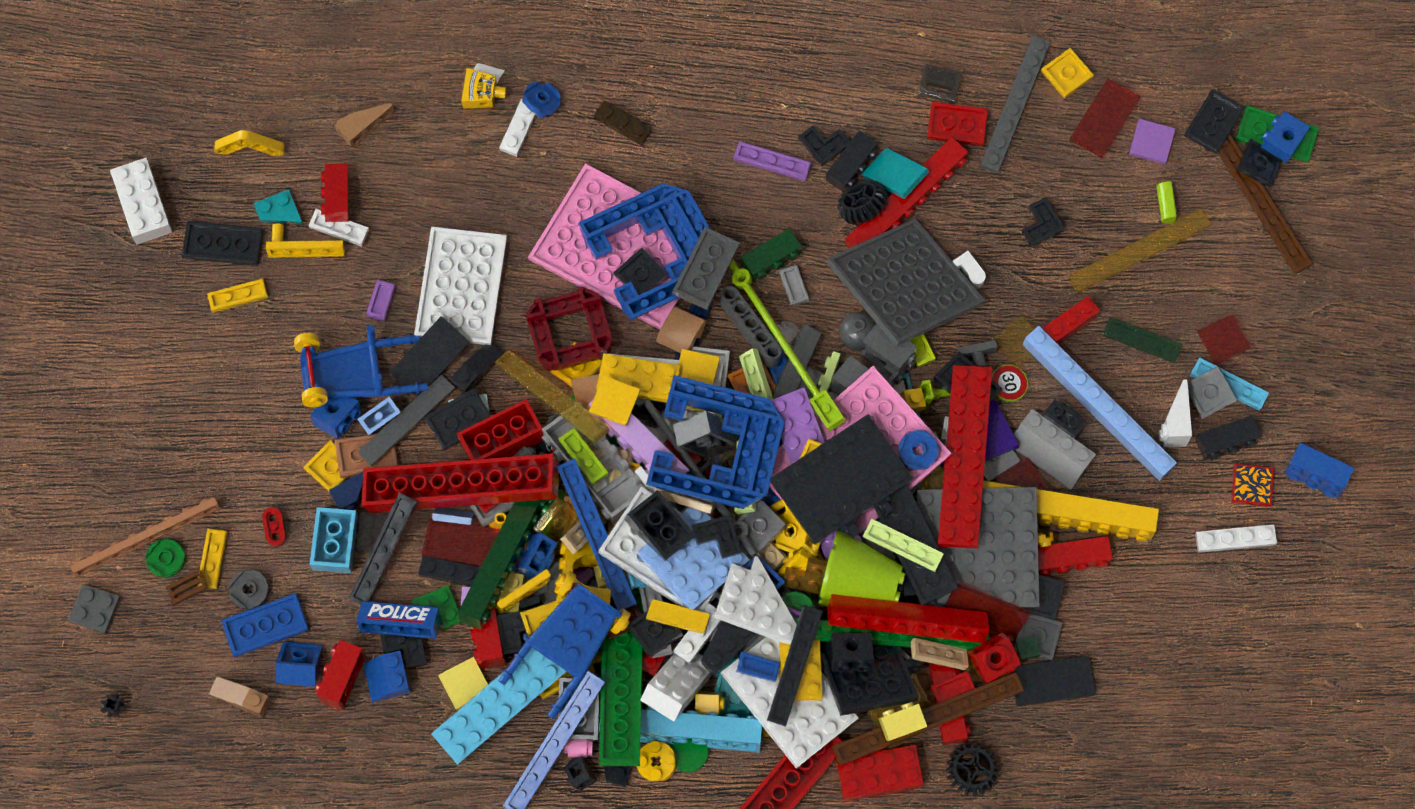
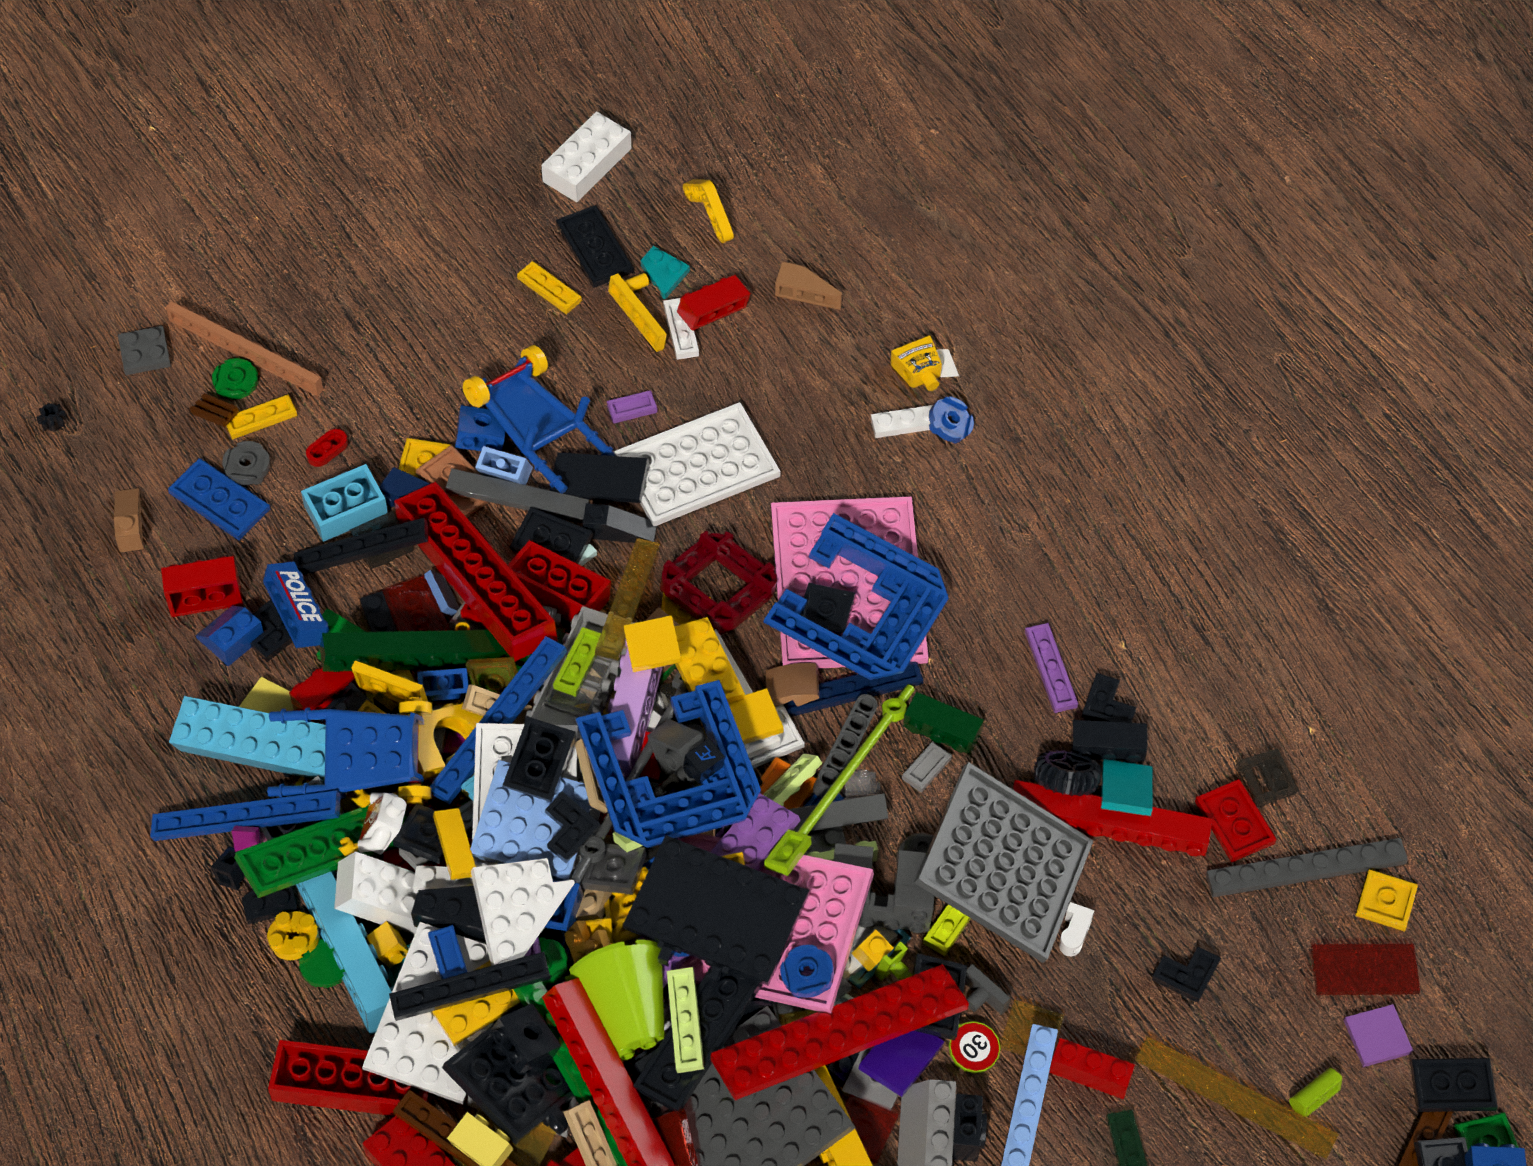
camera: 55 degrees right, 15 degrees down
(298, 664) = (192, 541): blue slope -> none
(572, 752) = (245, 837): none -> magenta tile
(622, 123) = (984, 508): dark brown plate -> none
(629, 655) = (380, 824): none -> white torso
(705, 268) = (871, 657): dark grey plate -> none
(728, 422) = (703, 761): none -> black brick

